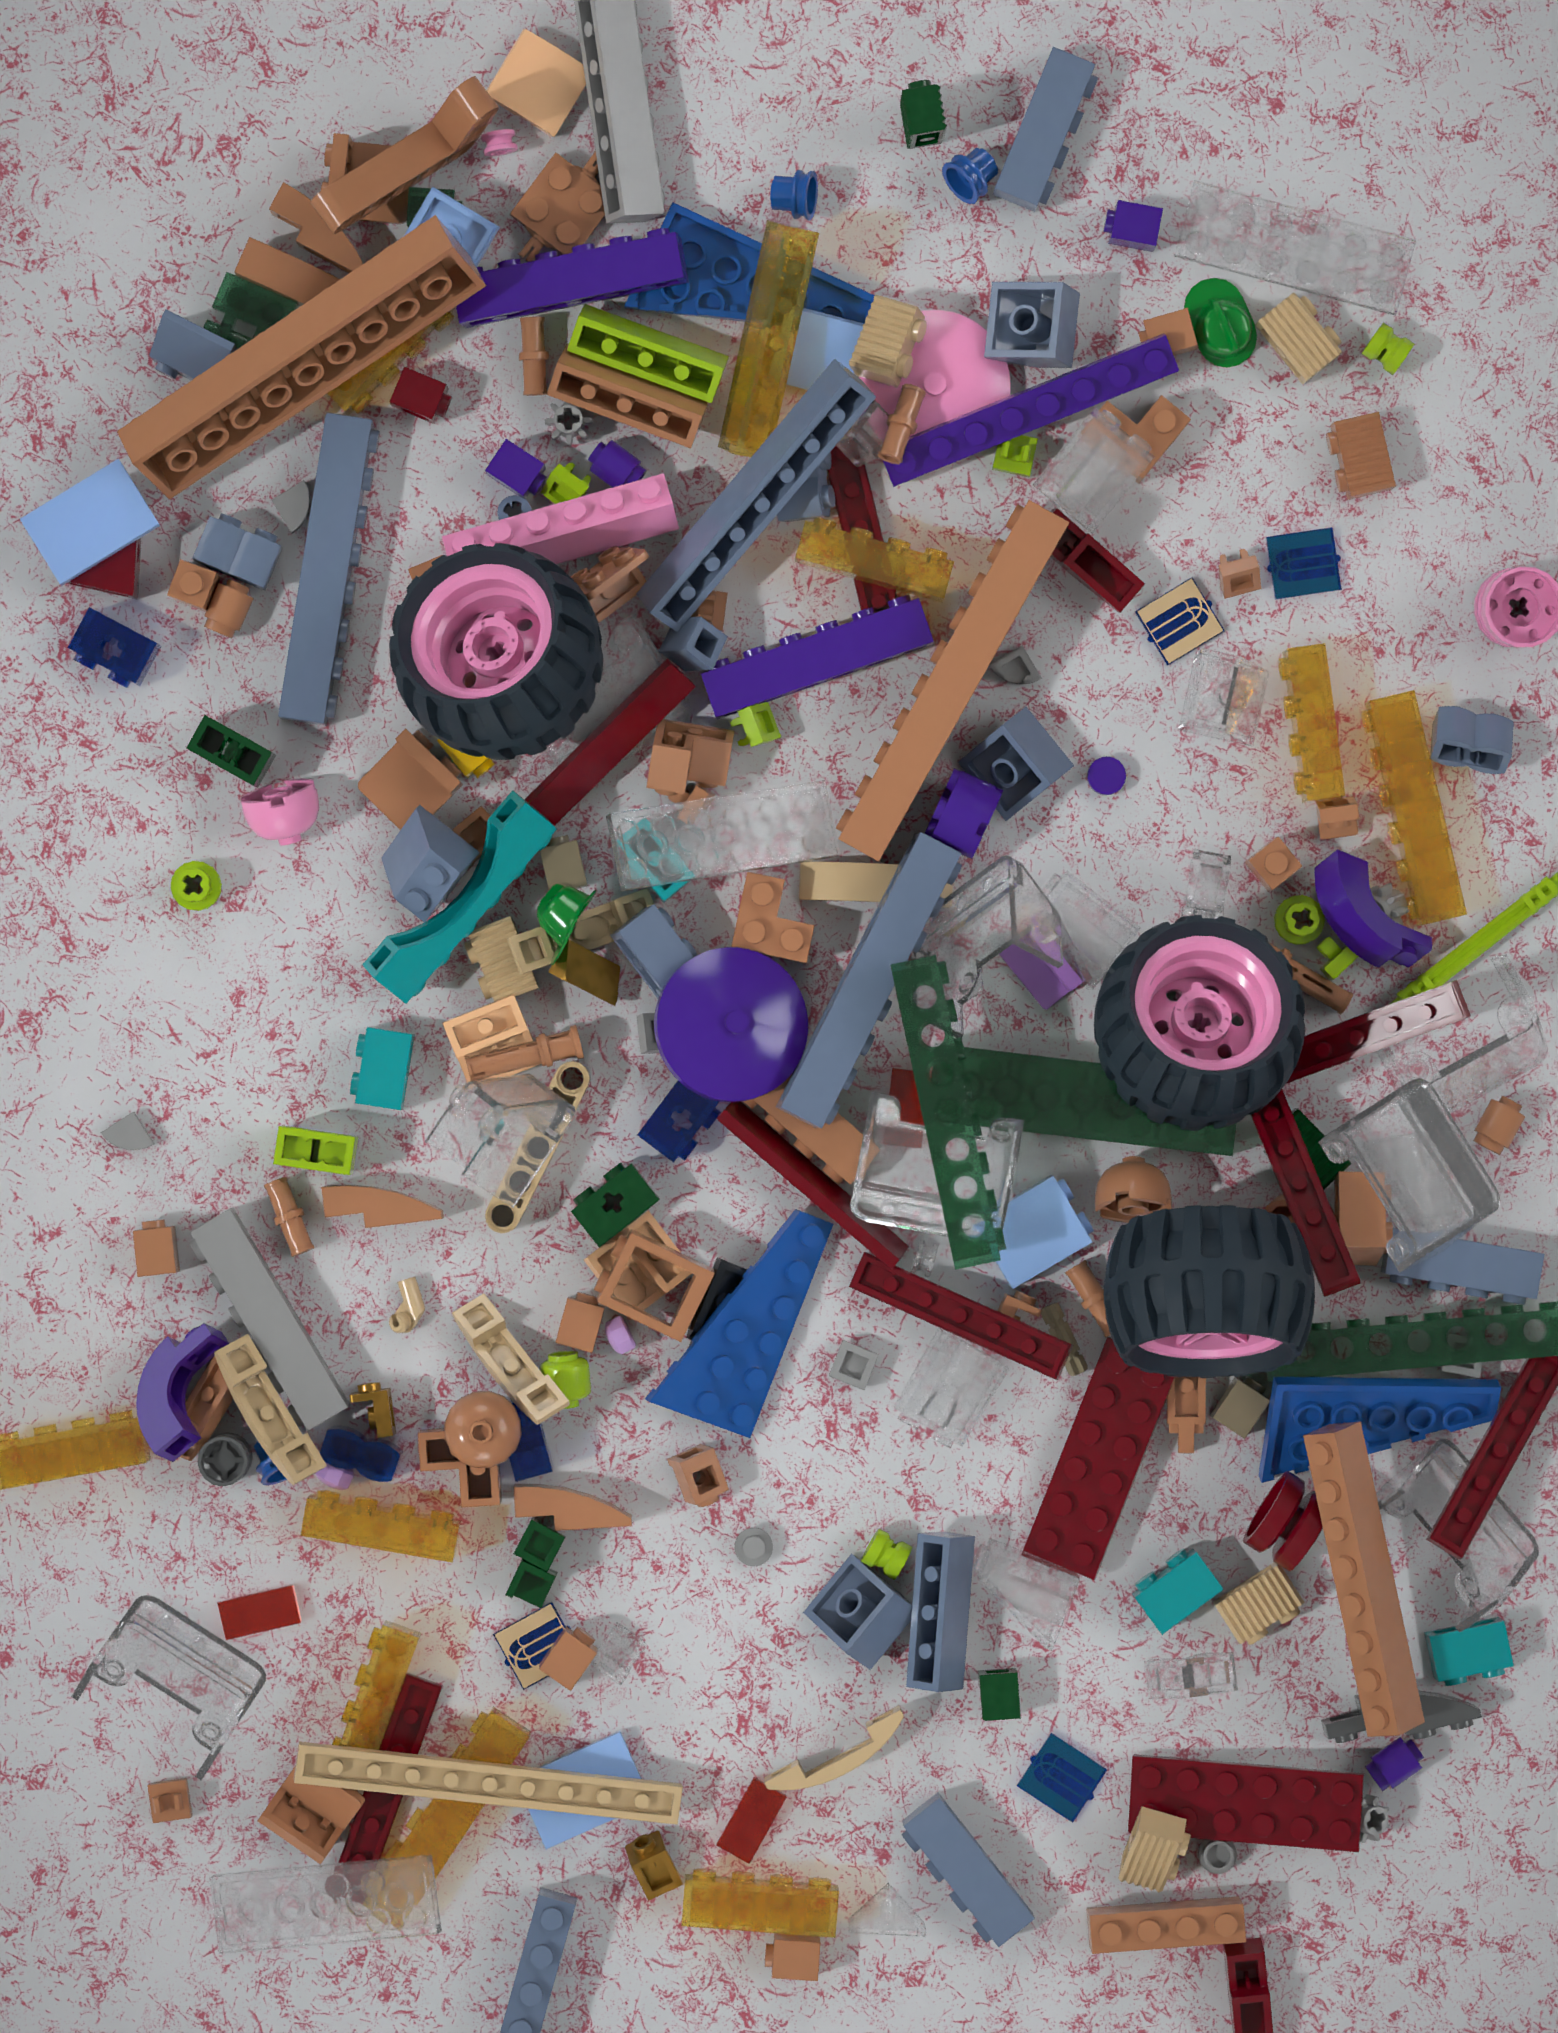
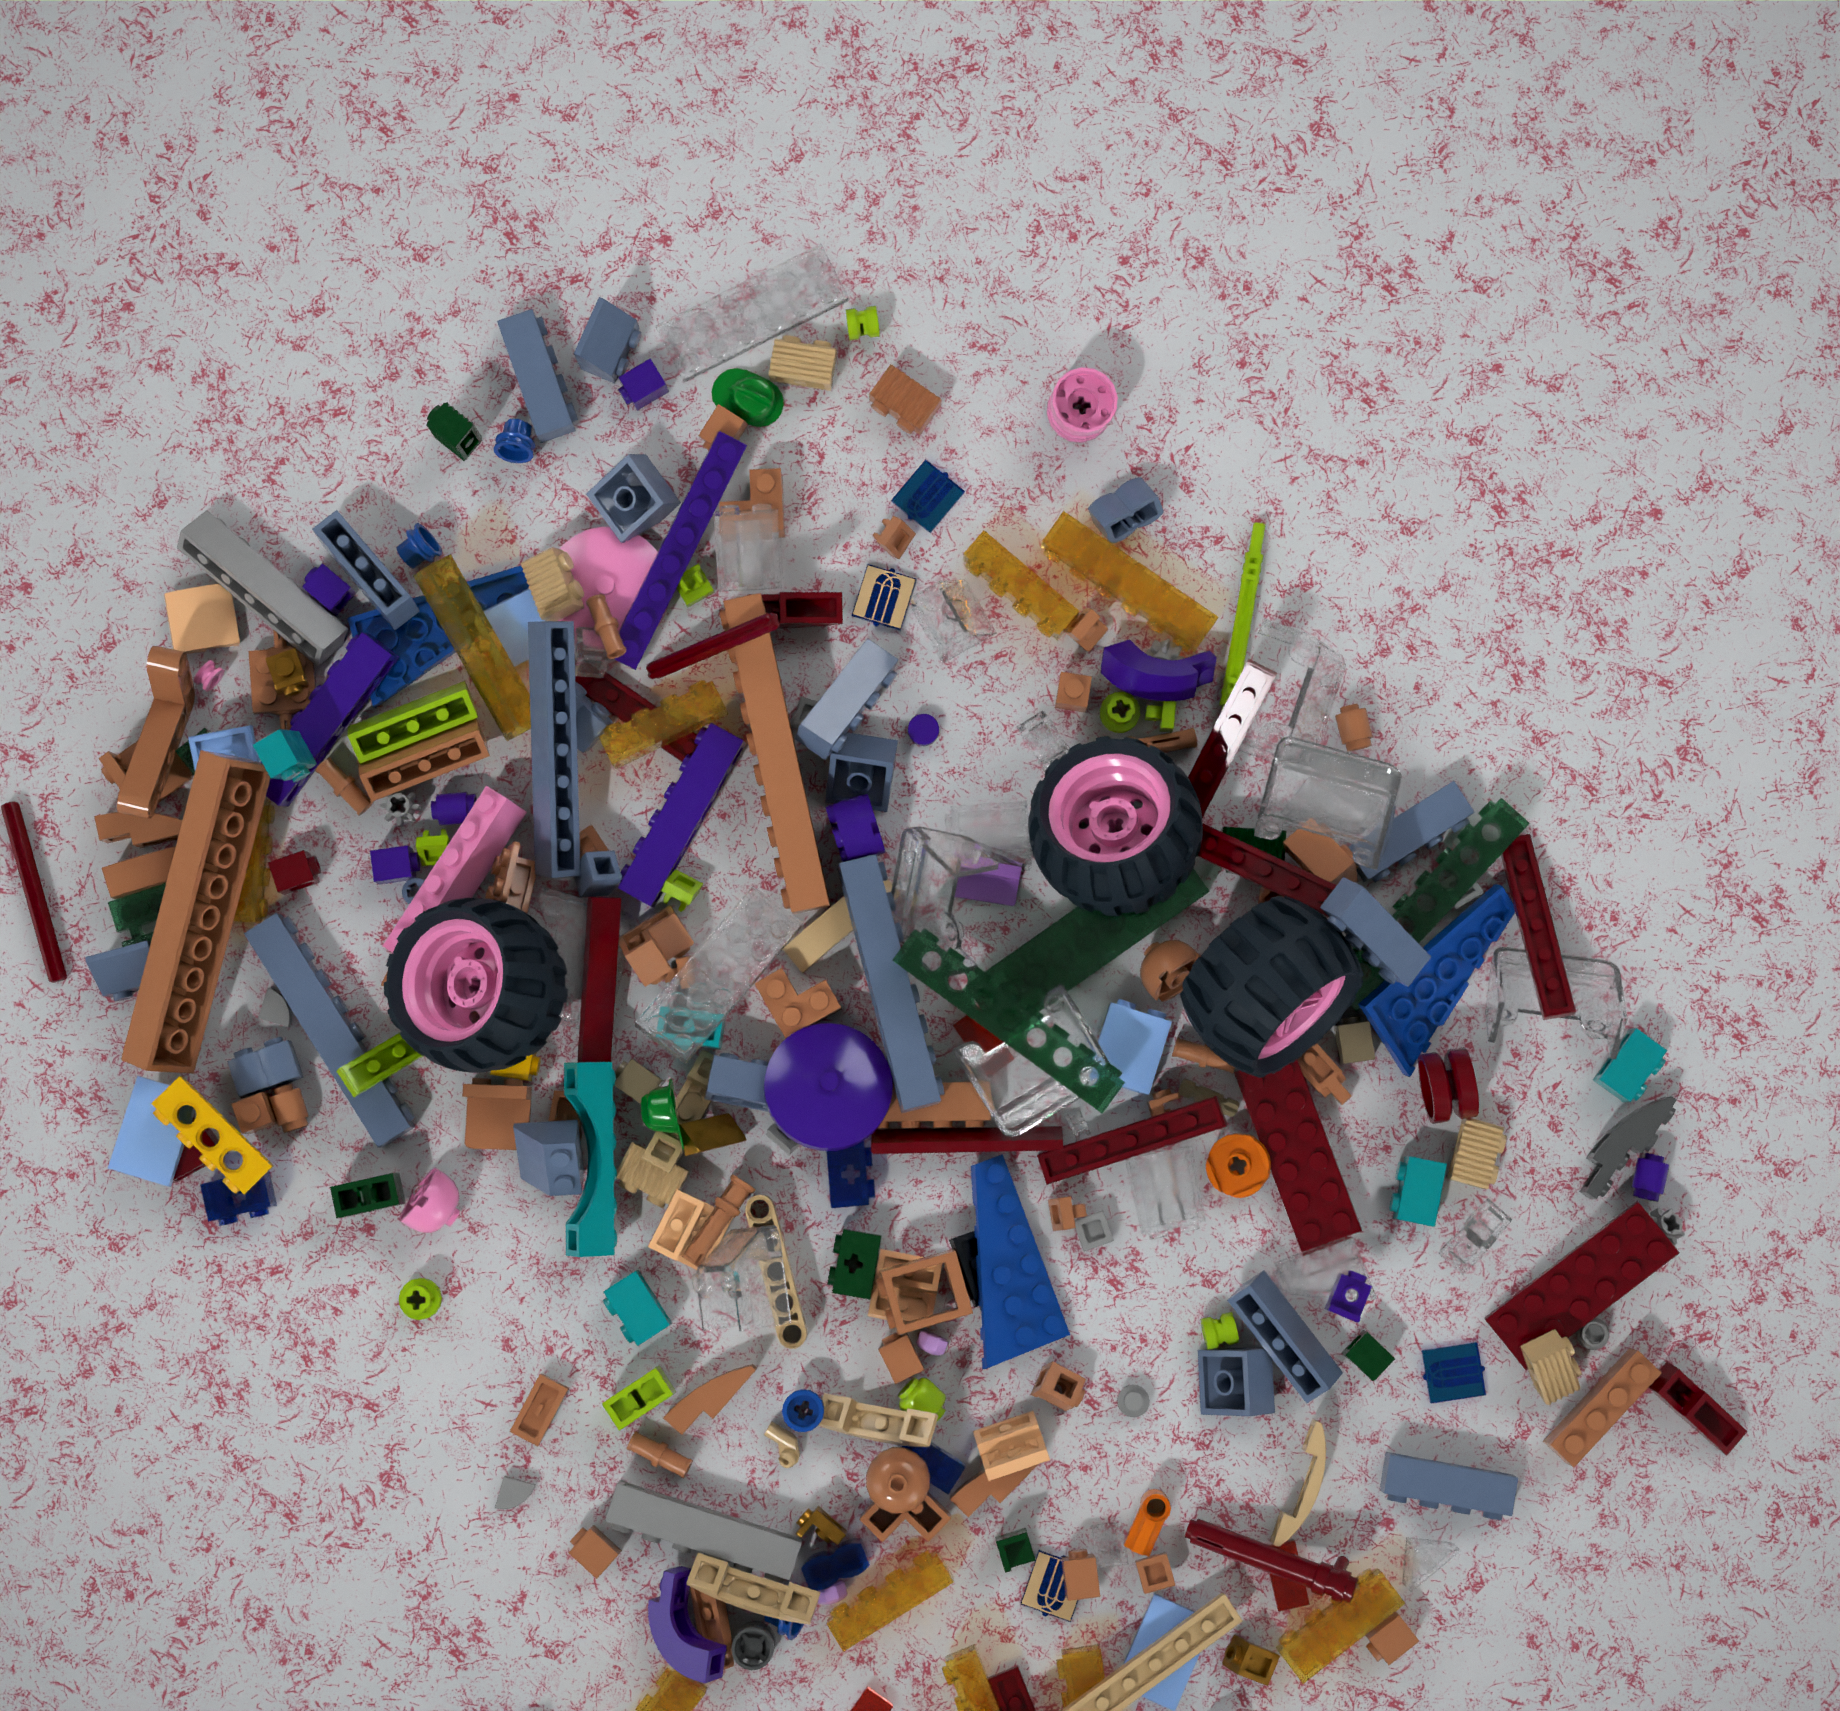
camera: 35 degrees left, 5 degrees down
(155, 633) = (167, 1110): none -> yellow brick
(167, 200) = (33, 892): none -> dark red axle
(216, 1080) = (539, 1409): none -> nougat plate
(344, 641) = (377, 1064): none -> lime tile
(449, 1307) = (791, 1415): none -> blue piece
(506, 286) = (285, 755): none -> teal brick
(539, 1544) = (998, 1521): dark green panel -> none
(573, 205) = (287, 673): none -> pearl gold bracket
(609, 1488) = (1011, 1445): none -> light nougat slope
(637, 1714) = (1155, 1573): none -> nougat tile
(667, 1666) = (1147, 1525): none -> orange piece
(678, 158) = (328, 588): none -> dark purple brick
(728, 174) = (366, 570): none -> sand blue brick
(778, 1846) = (1320, 1578): none -> dark red cylinder
(842, 1326) = (1063, 1213): none -> nougat tile
(982, 531) = (713, 645): none -> dark red axle
(1015, 1620) = (1337, 1300): none -> dark purple brick
(1026, 1403) = (1231, 1182): none -> orange plate
(1061, 688) = (846, 699): none -> brick
(1137, 157) = (607, 341): none -> sand blue slope
(1345, 1327) = (1375, 932): none -> sand blue brick
(1364, 1579) = (1528, 1079): nougat brick -> none

